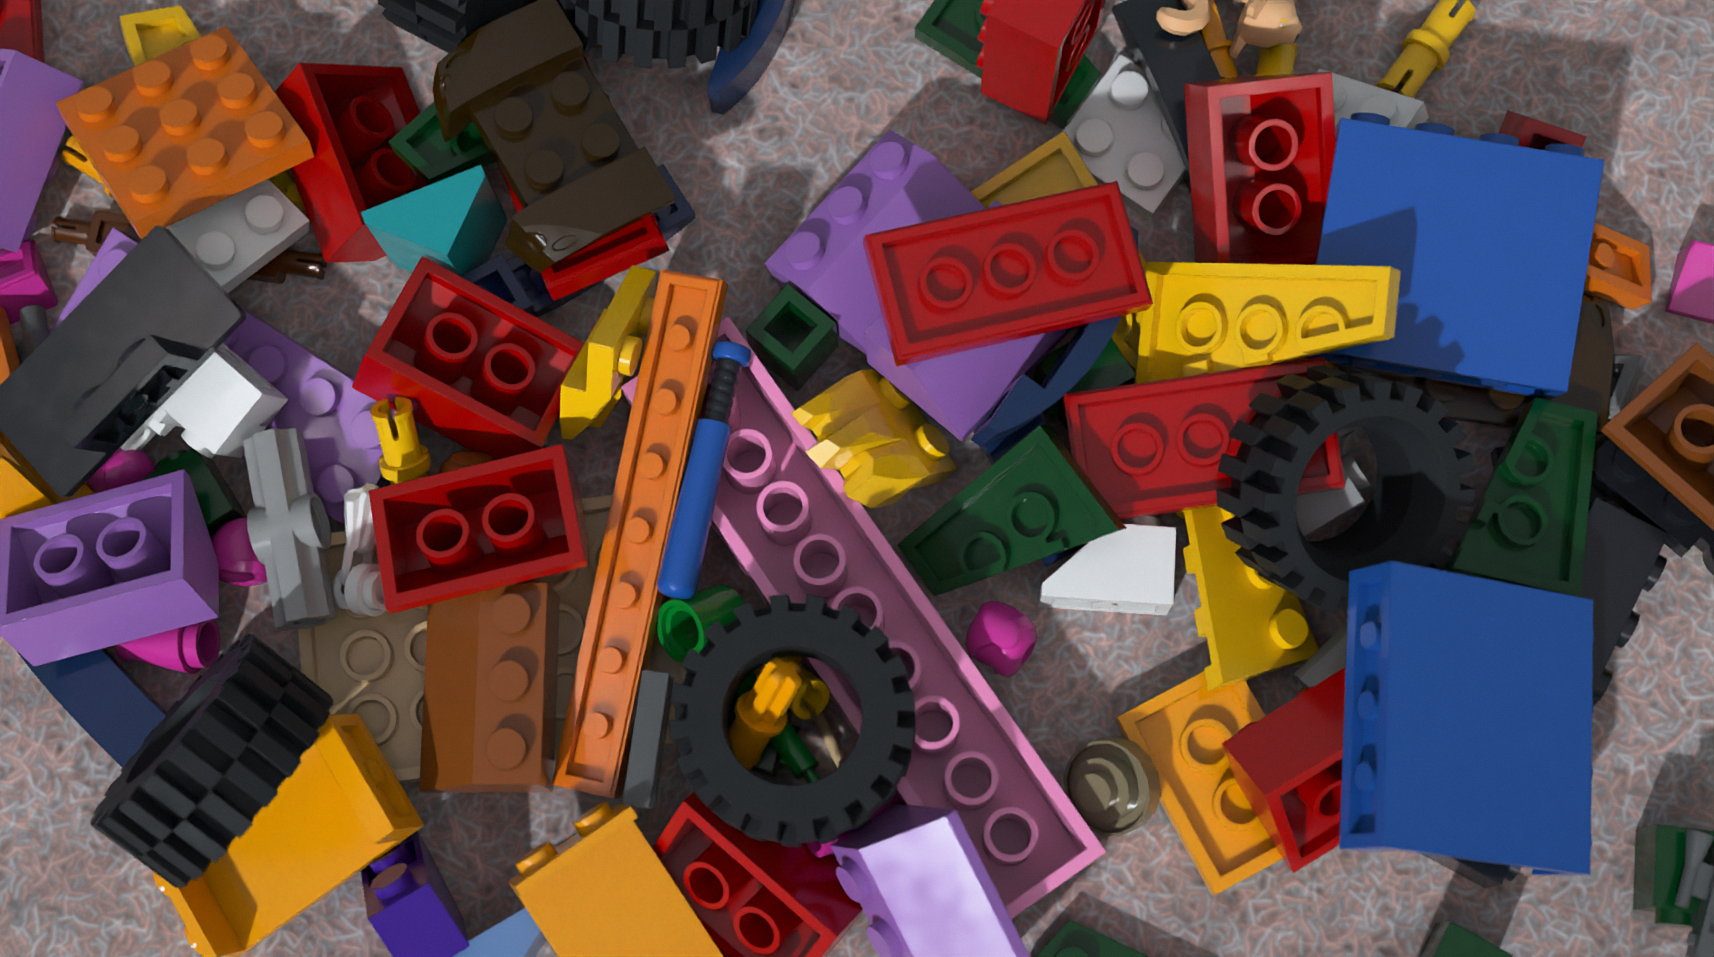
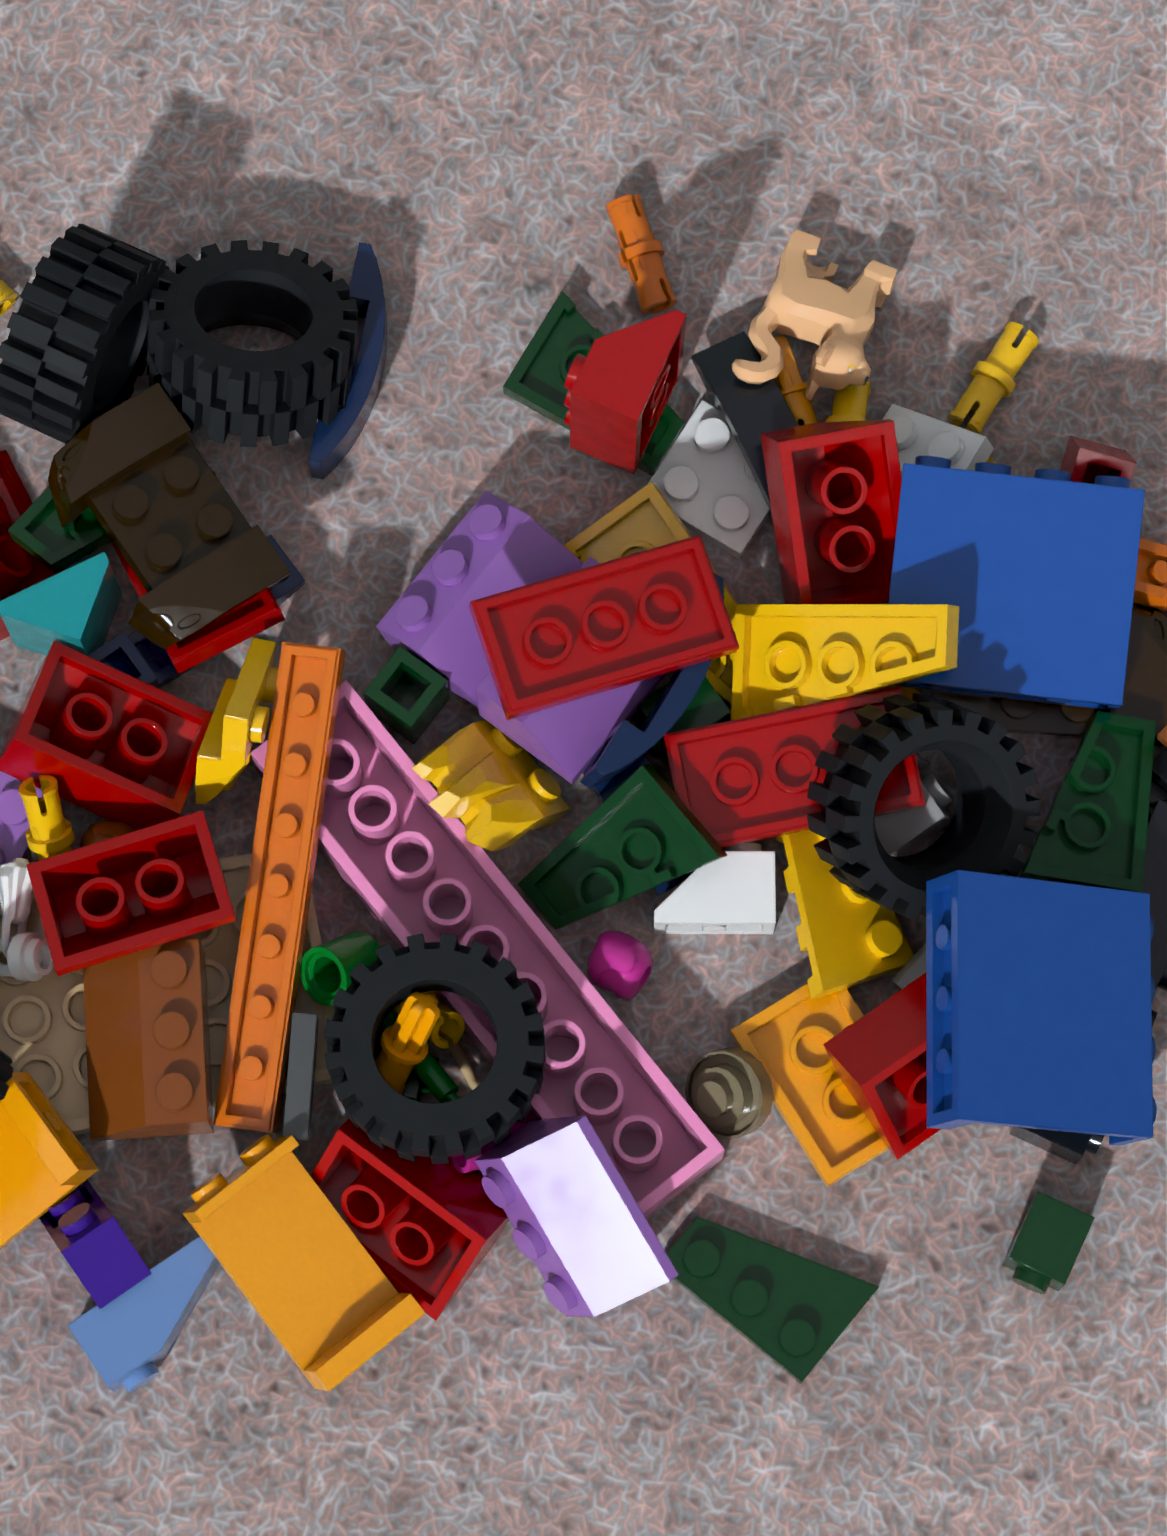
camera: 10 degrees left, 0 degrees up
(699, 489) = (330, 853): blue piece -> none

